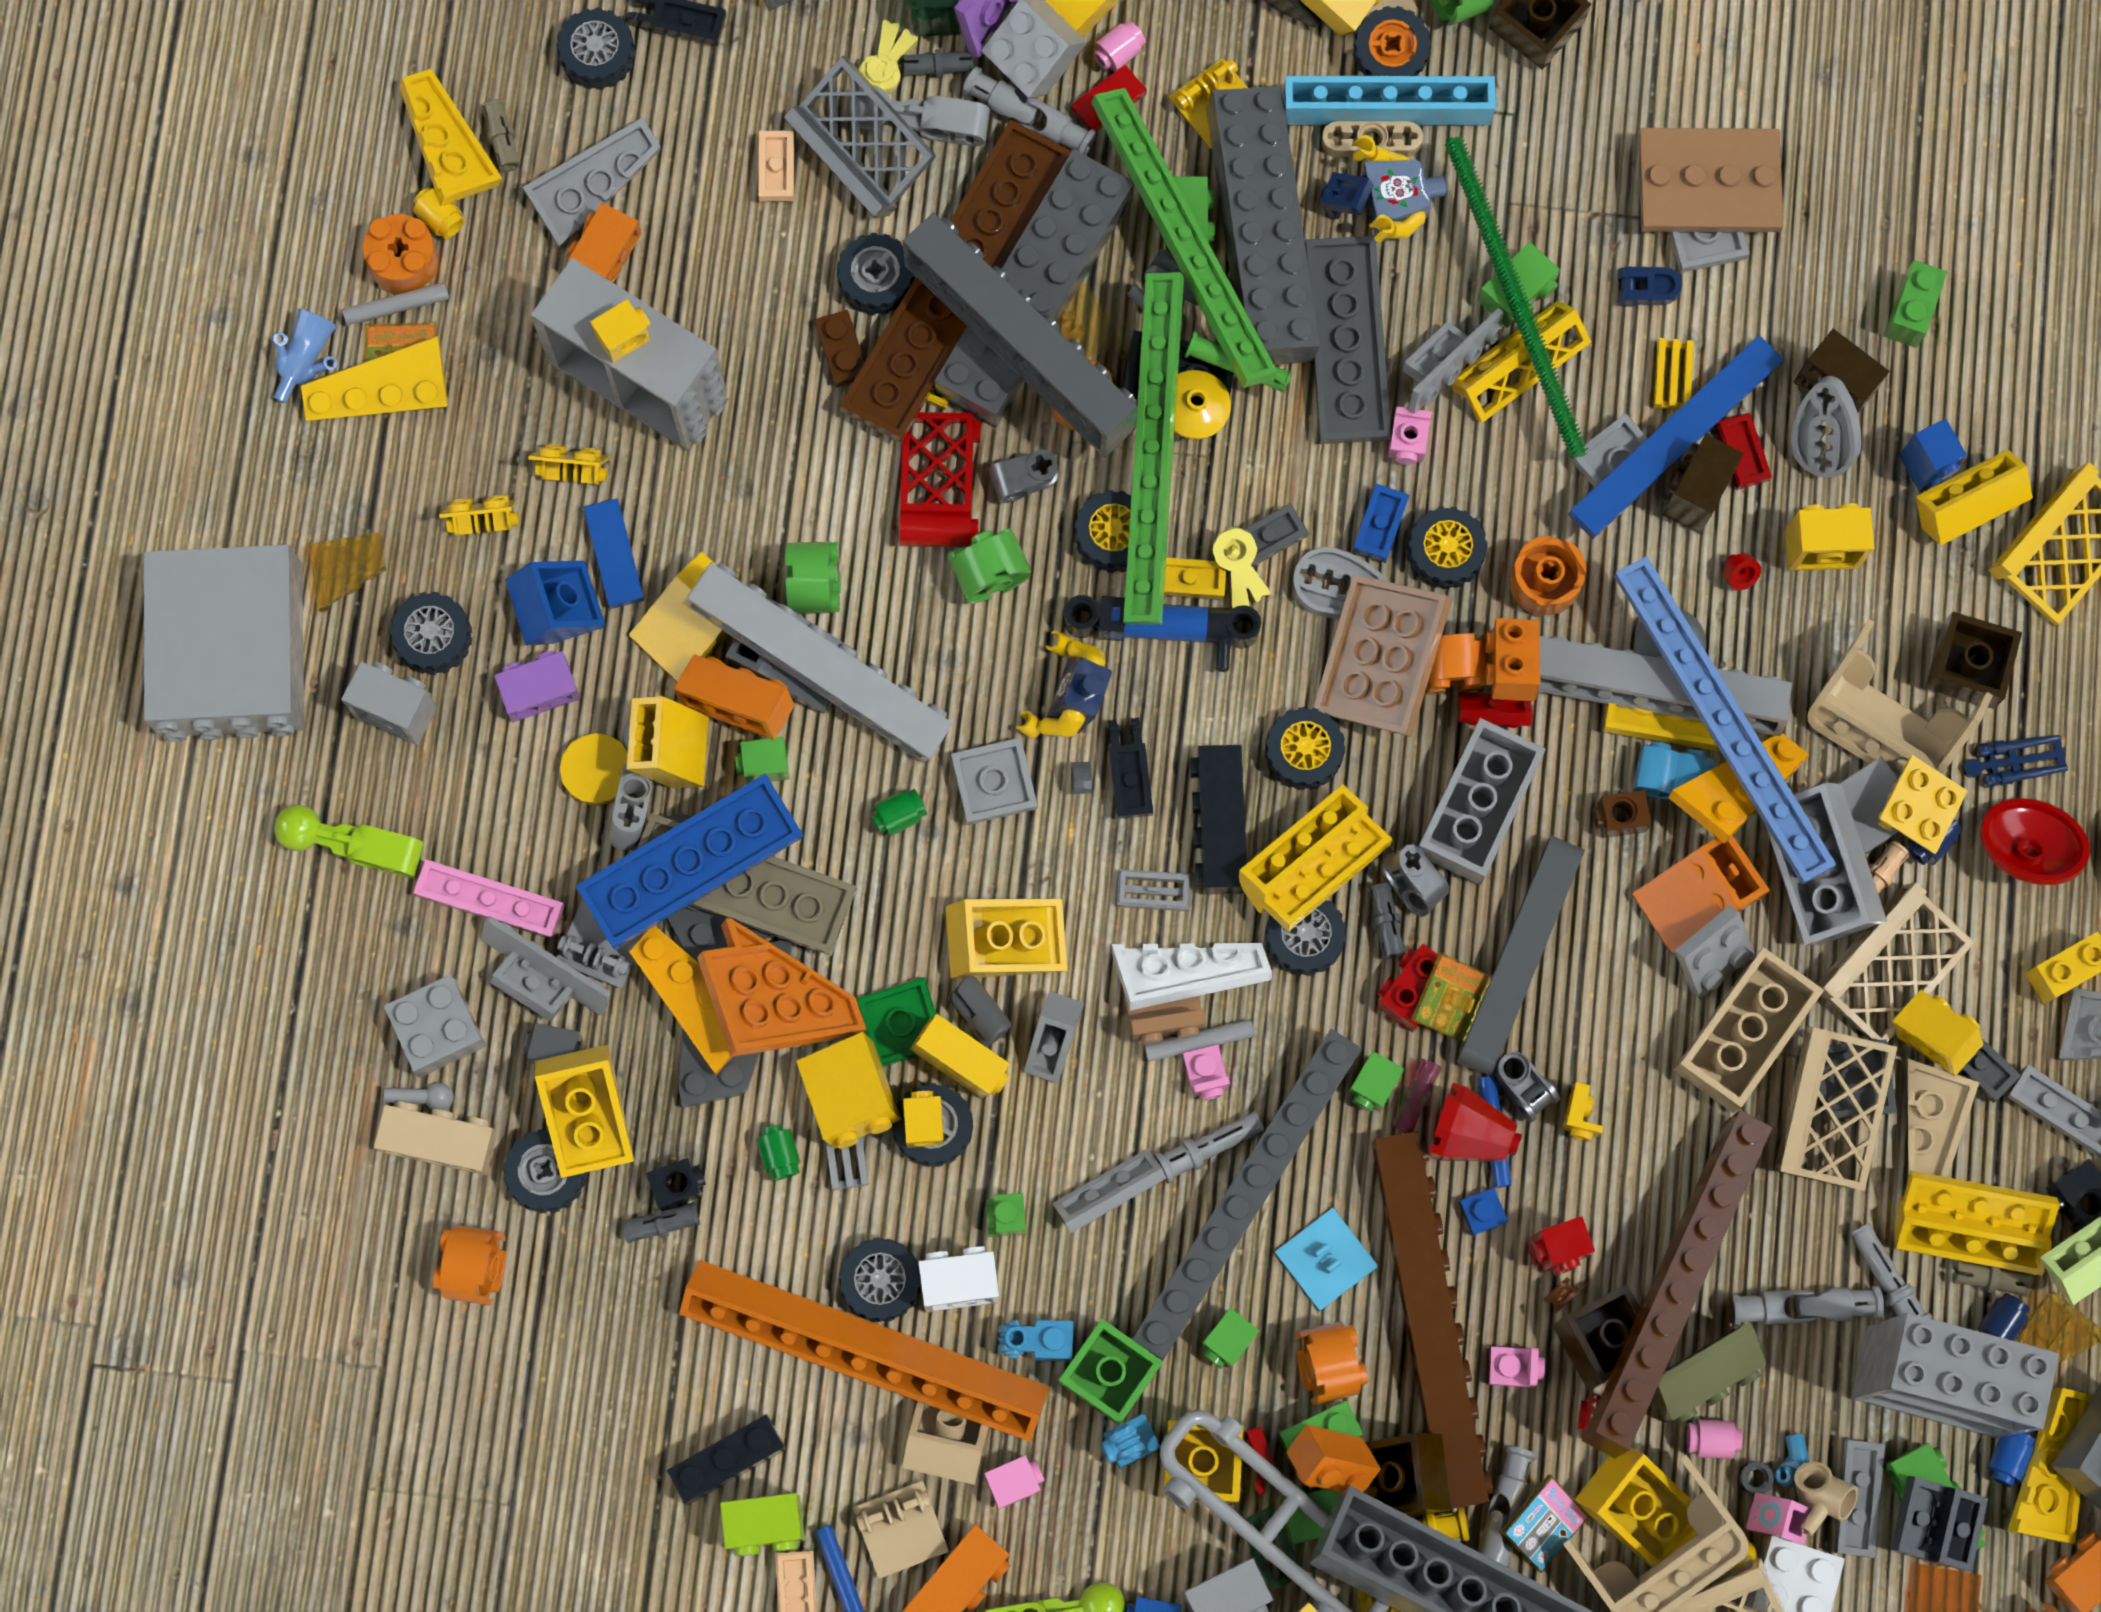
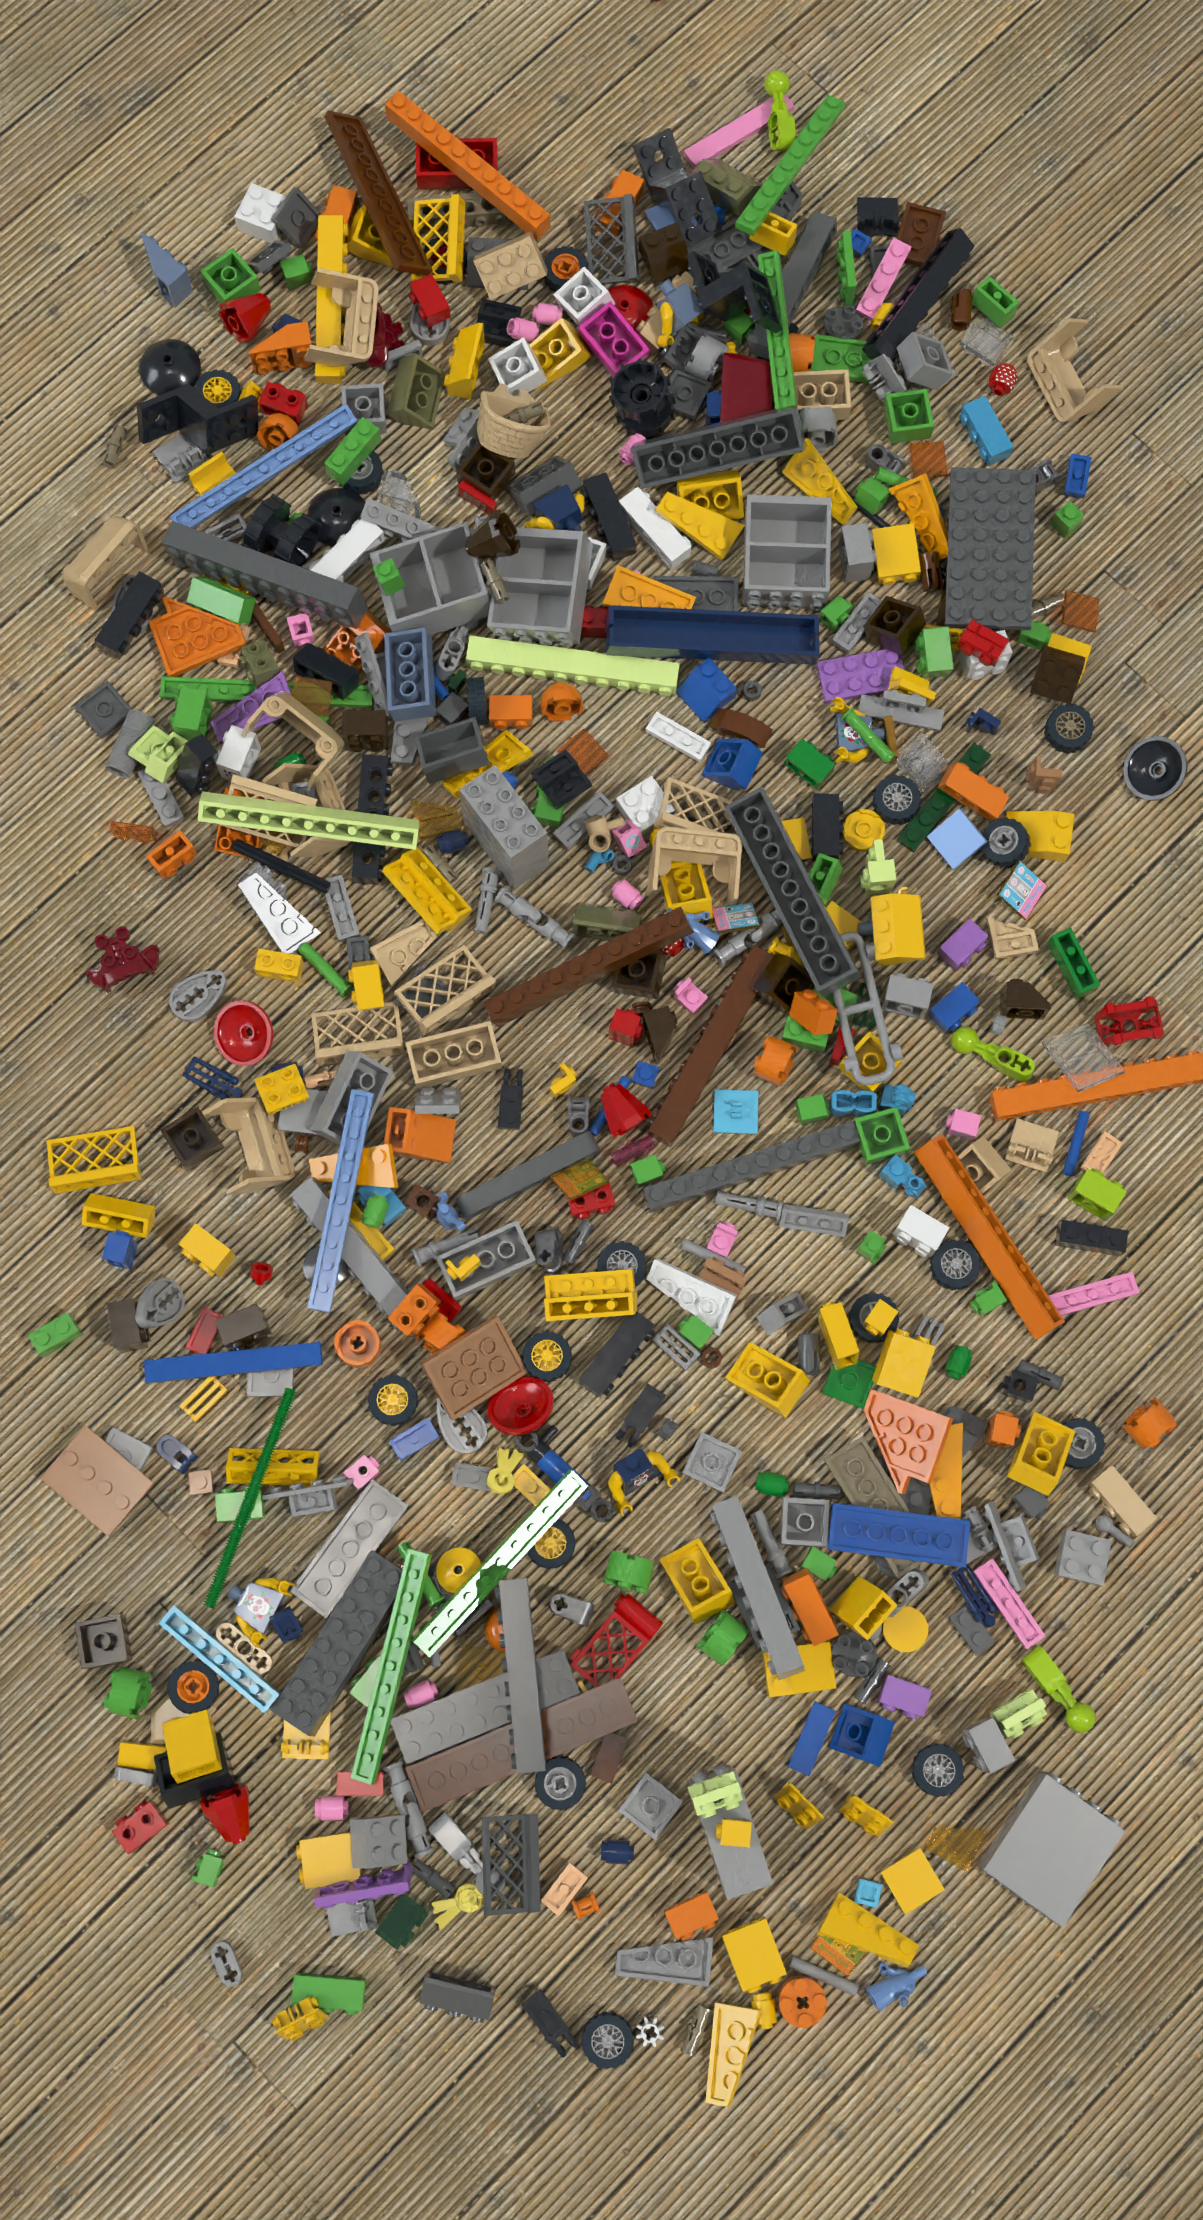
camera: 140 degrees left, 0 degrees up
(363, 786) = (1029, 1713): none -> yellowish green brick
(368, 486) = (912, 1880): none -> yellow tile
(411, 433) = (868, 1892): none -> medium azure tile
(496, 262) = (754, 1955): none -> yellow brick
(499, 859) = (976, 1607): none -> dark blue piece
(512, 833) = (971, 1631): none -> dark grey plate
(554, 82) = (652, 2038): none -> white gear
(591, 675) = (872, 1681): none -> dark grey pin
(634, 680) = (853, 1654): none -> dark grey dish
(656, 1103) = (1002, 1430): none -> orange brick
(662, 363) = (704, 1795): none -> yellowish green brick
(668, 1386) = (1095, 1294): none -> bright pink plate
(736, 166) = (585, 1906): none -> orange bush
(747, 250) = (617, 1851): none -> dark blue brick
(749, 329) = (650, 1806): none -> light grey plate
(802, 1265) = (987, 1300): none -> bright green brick
(821, 793) = (804, 1522): none -> light grey brick
(827, 732) = (775, 1553): none -> light grey pin
(837, 847) = (816, 1490): none -> dark grey pin
(898, 624) = (697, 1581): none -> yellow slope
(1089, 905) = (709, 1351): none -> reddish brown bush
(1121, 243) = (421, 1694): none -> bright pink brick
(1145, 924) = (695, 1331): none -> bright green brick
(1190, 1381) = (858, 1104): none -> dark azure brick
(1299, 652) = (521, 1397): none -> red dish
(1497, 764) = (467, 1266): none -> yellow bracket
(1512, 1276) = (659, 1030): none -> dark brown slope
(1554, 768) = (434, 1249): none -> light grey pin
(1576, 821) = (447, 1215): none -> medium blue piece
(1578, 1458) = (703, 936): none -> medium blue piece
(1588, 278) = (201, 1482): none -> plate
(1624, 1035) = (511, 1102): none -> black hinge
(1669, 744) = (375, 1211): none -> bright green brick
(1835, 767) = (302, 1143): none -> reddish brown bush
(2012, 1014) = (325, 969): none -> bright green pin

